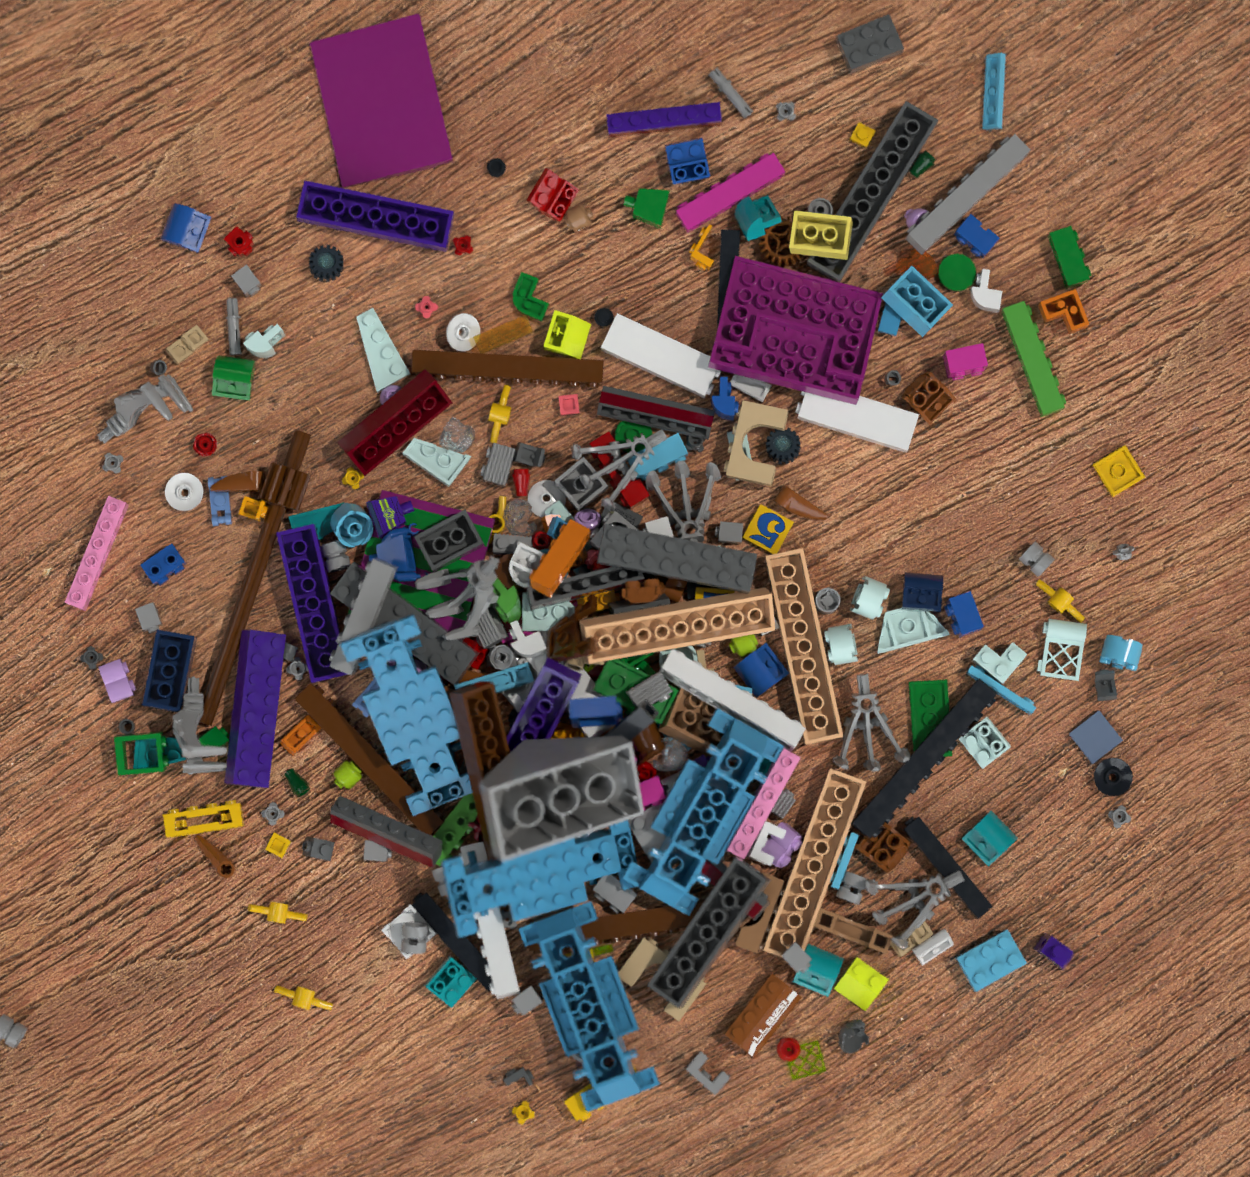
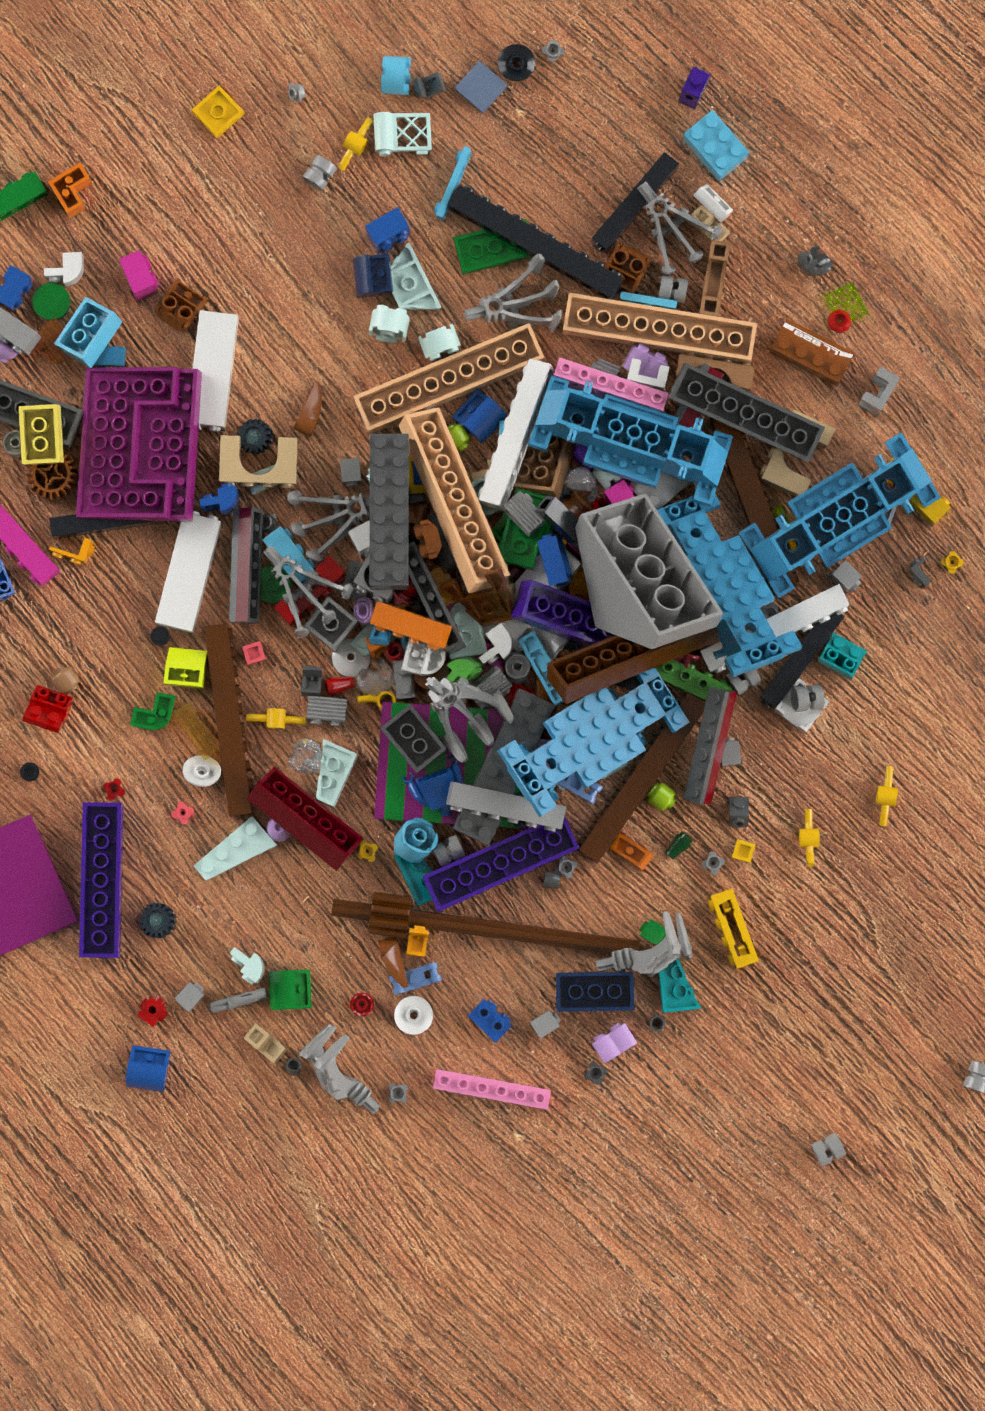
camera: 100 degrees left, 0 degrees up
(121, 757) = (665, 1007): green window -> none
(216, 857) = (767, 910): dark orange piece -> none
(255, 708) = (615, 899): dark purple brick -> none
(388, 514) = (398, 805): dark purple torso -> none
(610, 889) = (723, 517): light grey brick -> none
(648, 206) = (41, 613): green torso -> none
(752, 387) = (203, 478): white tile -> none
(756, 216) = (32, 504): teal brick -> none
(768, 529) = (340, 436): tile -> none
(797, 958) = (753, 325): light grey brick -> none
(822, 972) = (758, 305): teal brick -> none
(827, 601) = (399, 364): light grey wheel -> none
(861, 984) = (762, 264): neon yellow slope -> none
(892, 374) = (164, 345): dark grey hinge -> none
(985, 742) = (507, 188): light aqua brick -> none
(989, 838) = (598, 167): teal brick -> none
(998, 666) = (430, 188): light aqua brick -> none
(1032, 358) = (123, 212): bright green brick -> none

